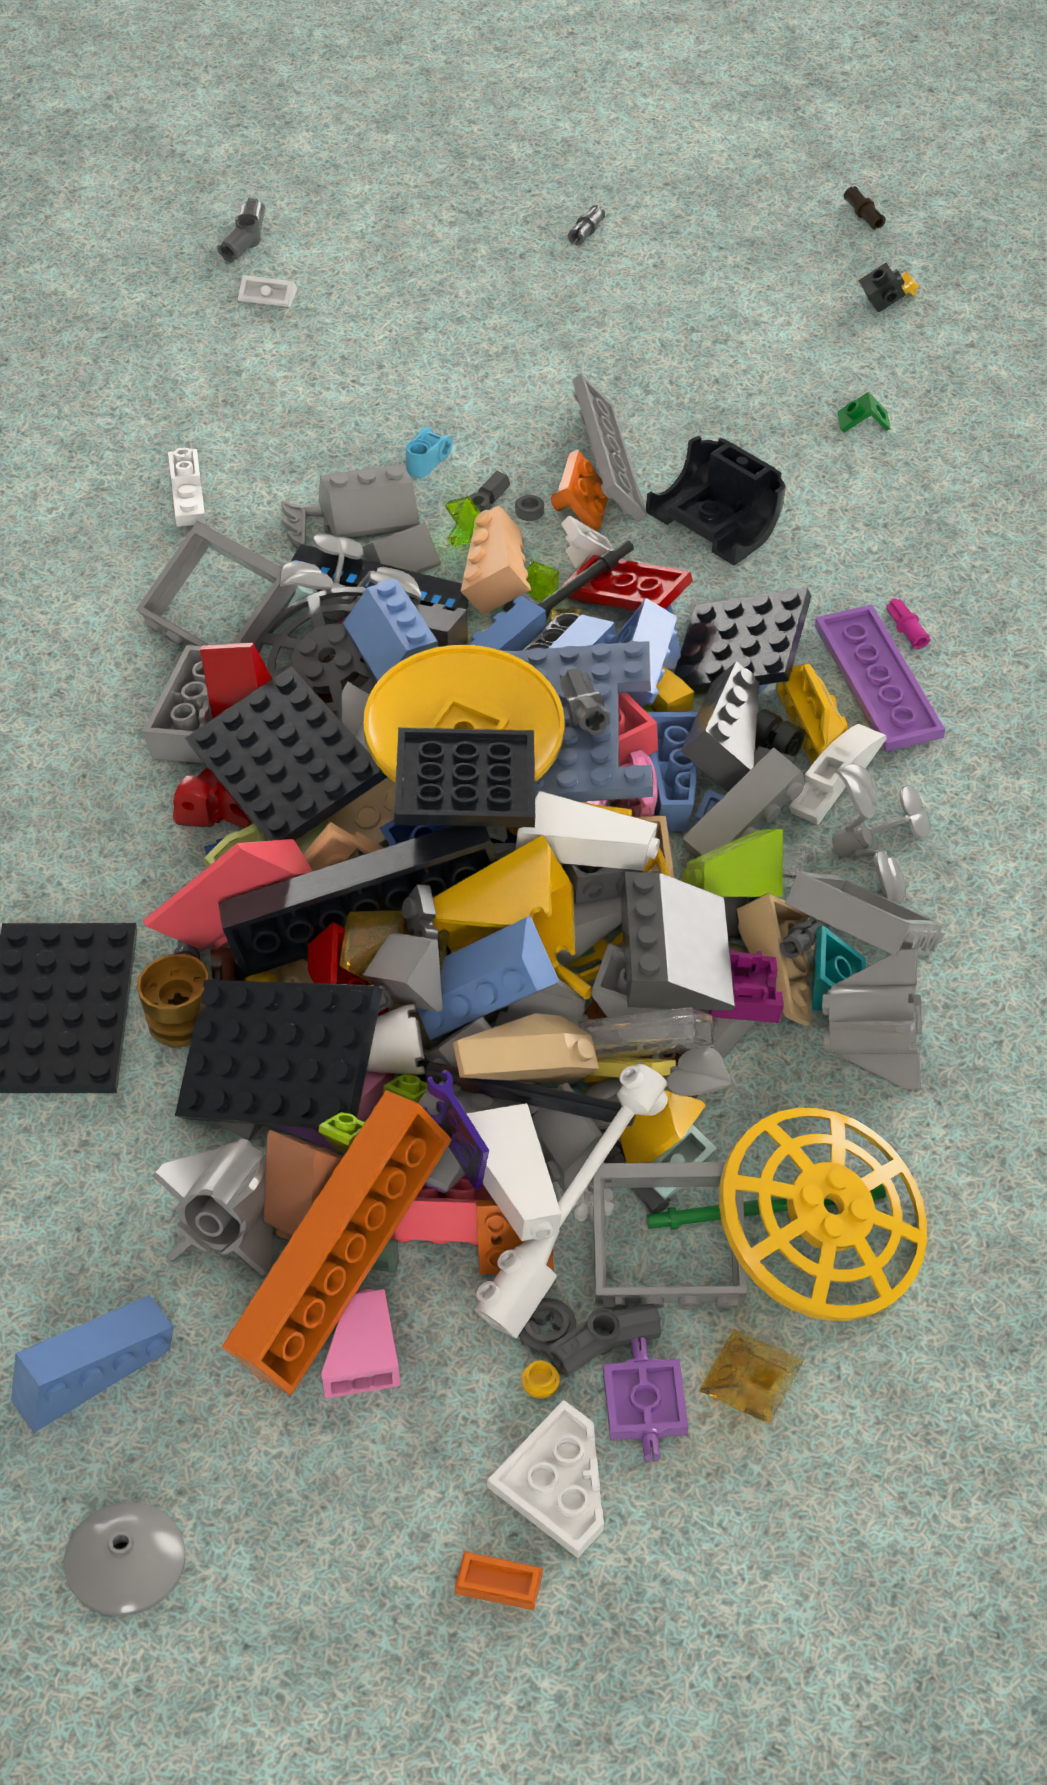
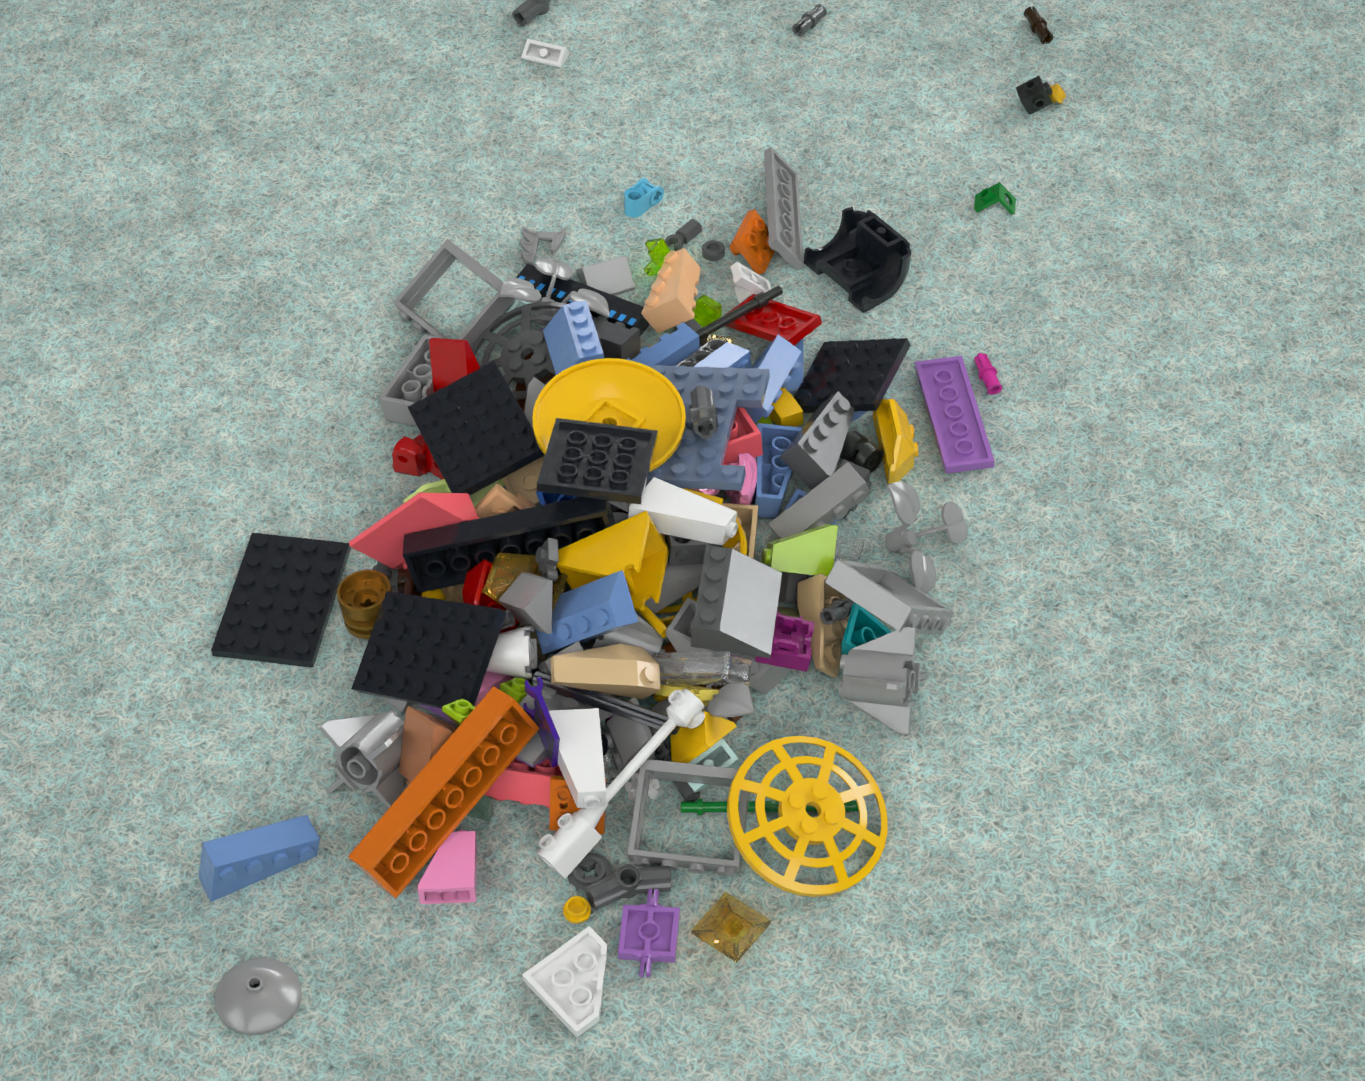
camera: 10 degrees right, 0 degrees up
(186, 487) = (450, 209): white slope -> none
(368, 501) = (587, 234): light grey slope -> none
(498, 1580) = (517, 1045): orange tile -> none
(822, 784) = (915, 470): white slope -> none

